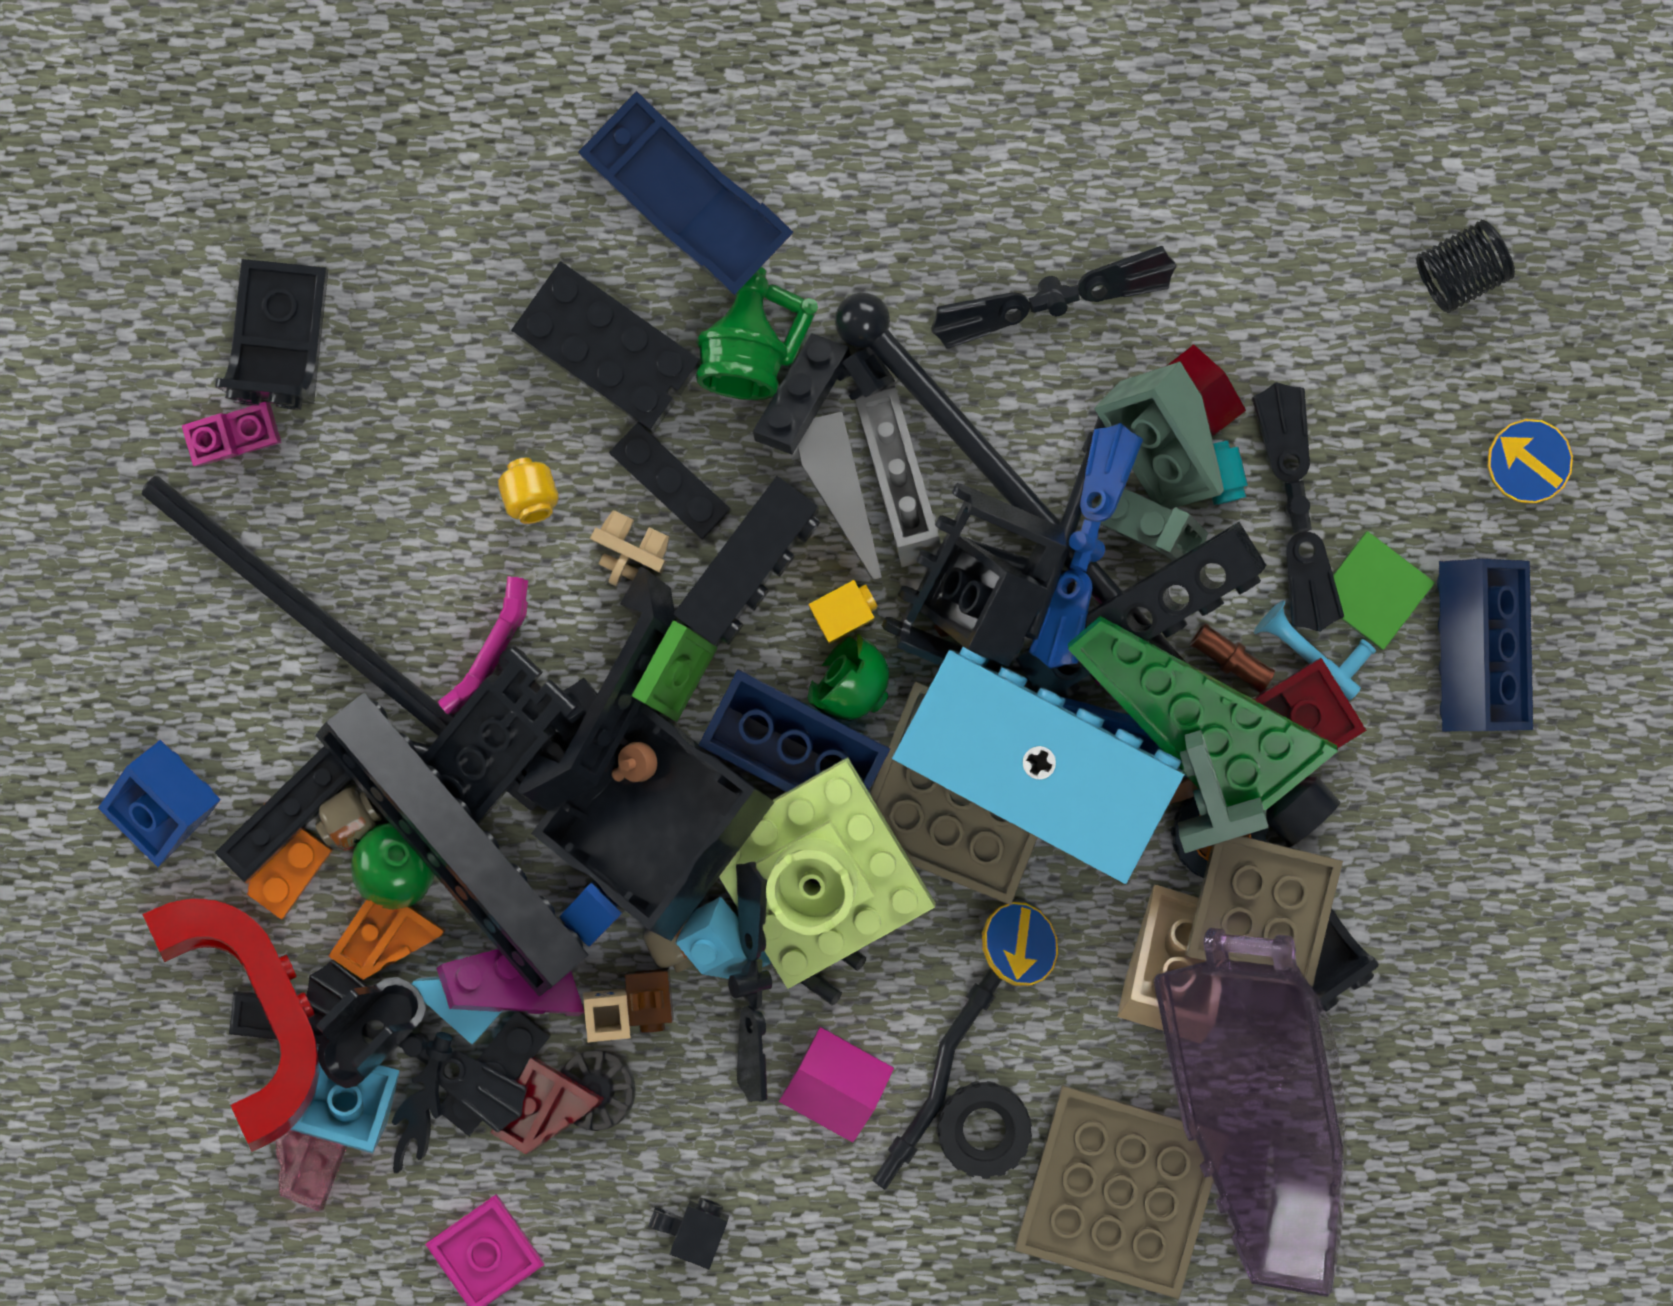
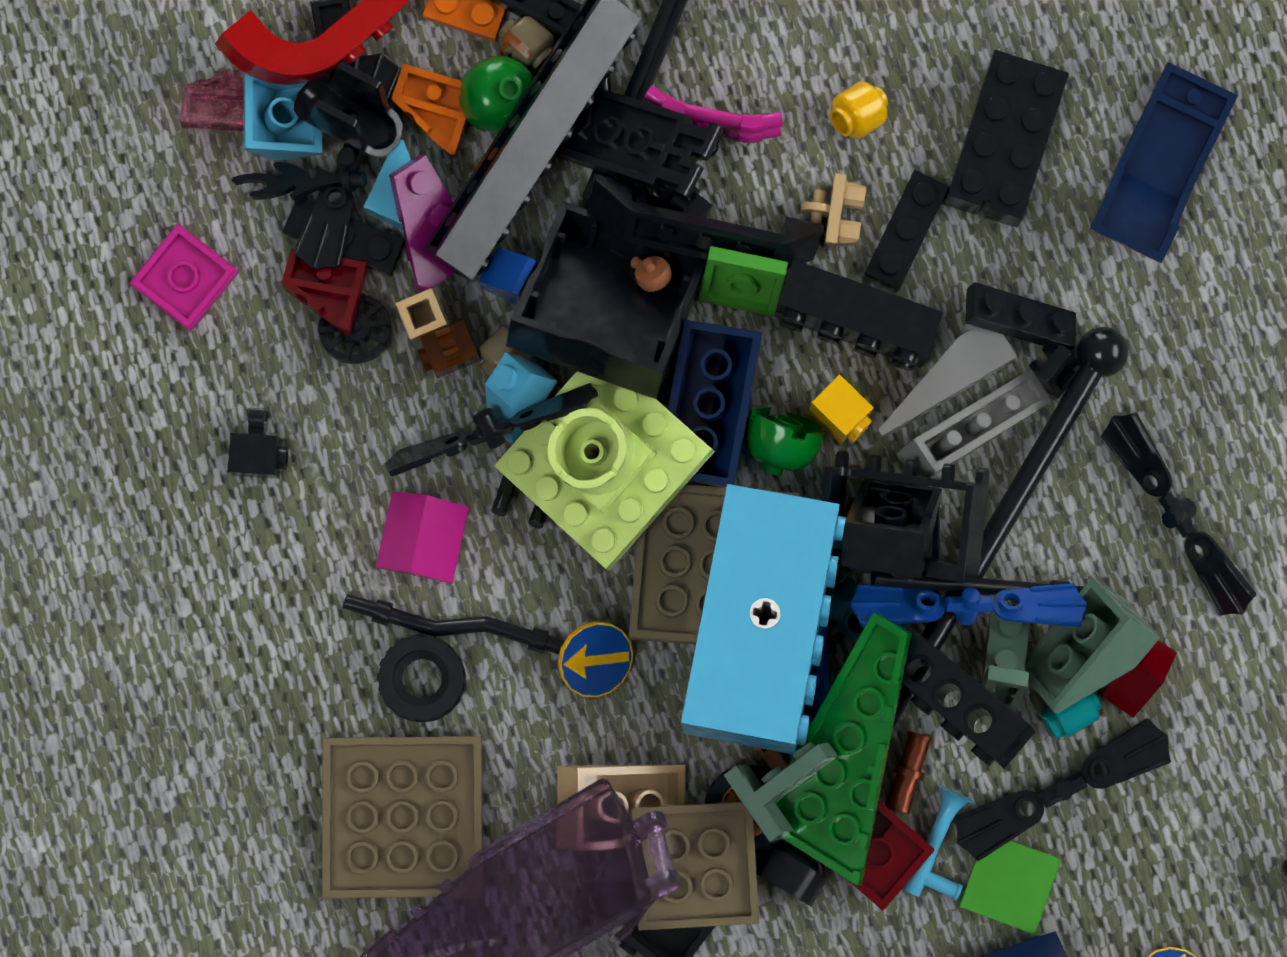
camera: 80 degrees right, 5 degrees down
(743, 351) = (1042, 254): green piece -> none

